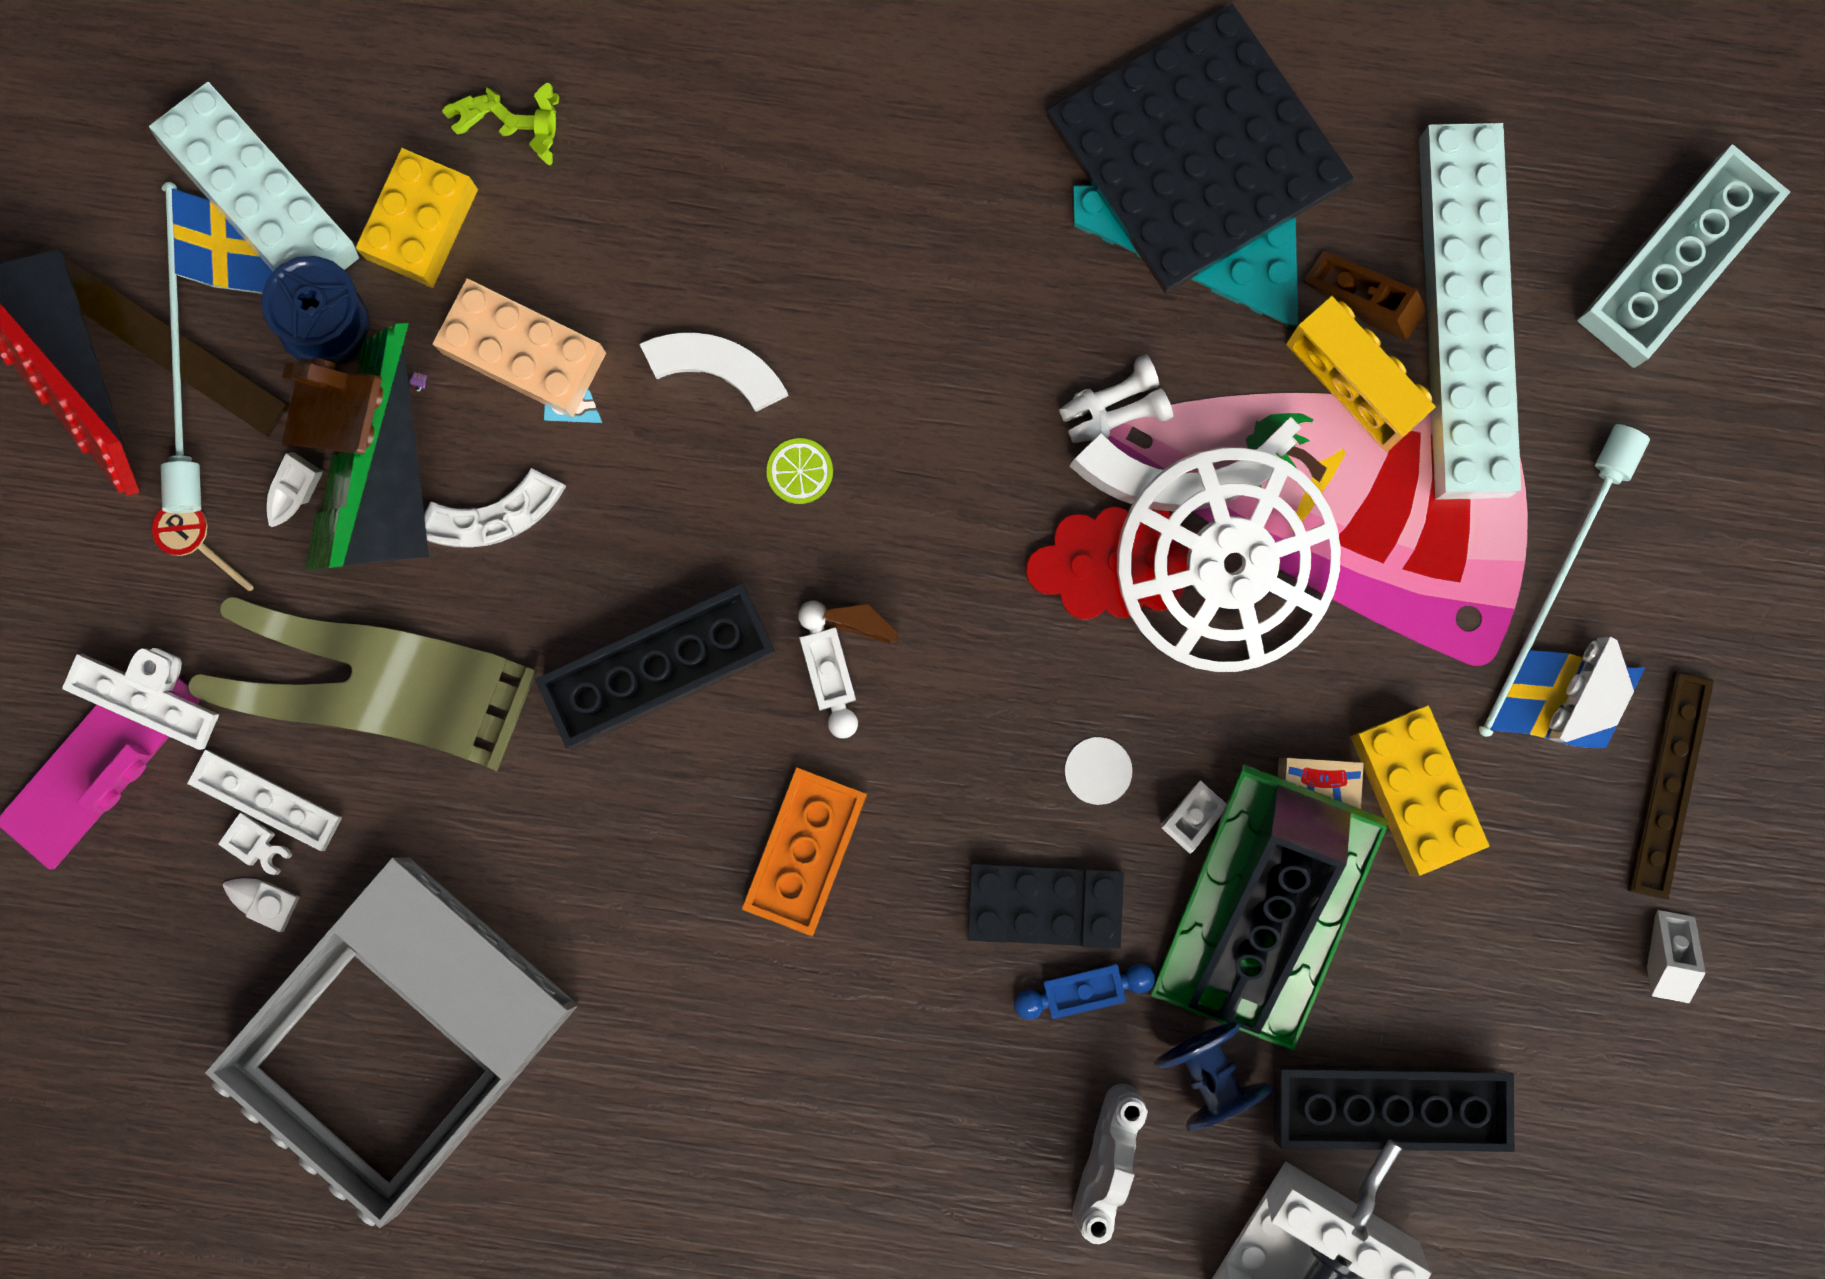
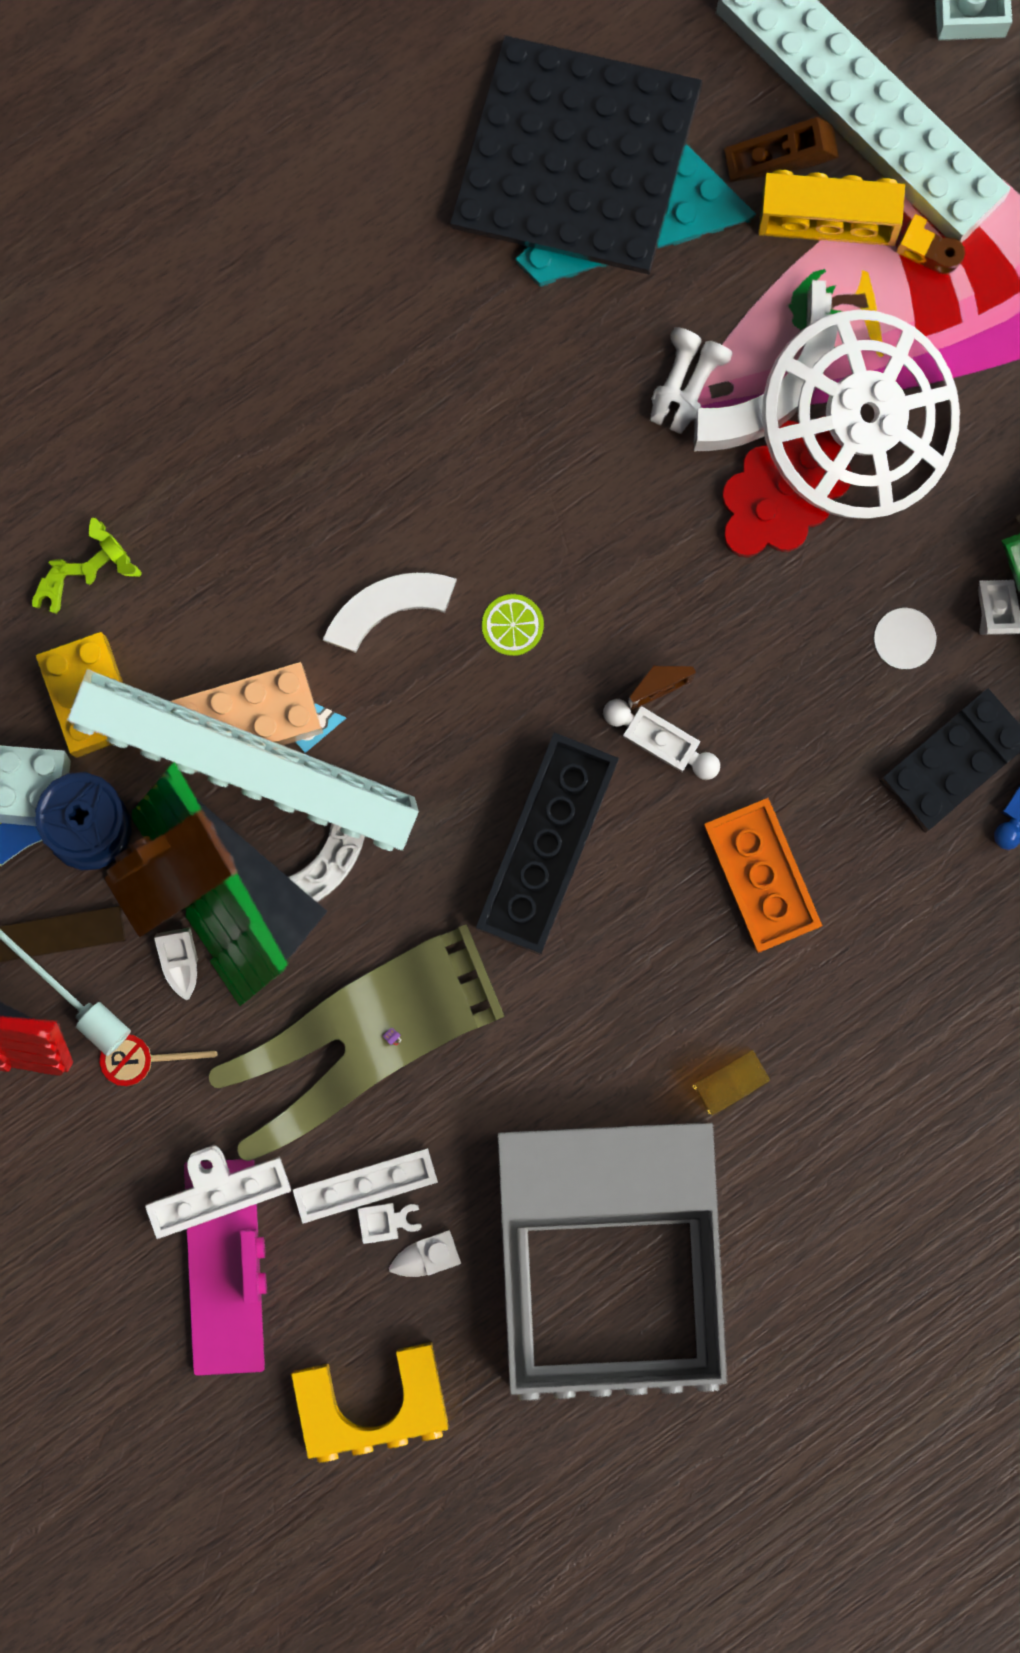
camera: 45 degrees left, 0 degrees up
(55, 966) = (330, 1432): none -> yellow arch
(396, 703) = (392, 1036): none -> medium lavender piece
(471, 373) = (243, 760): none -> light aqua brick
(622, 992) = (731, 1083): none -> clear yellow slope
(1411, 481) = (929, 248): none -> leg

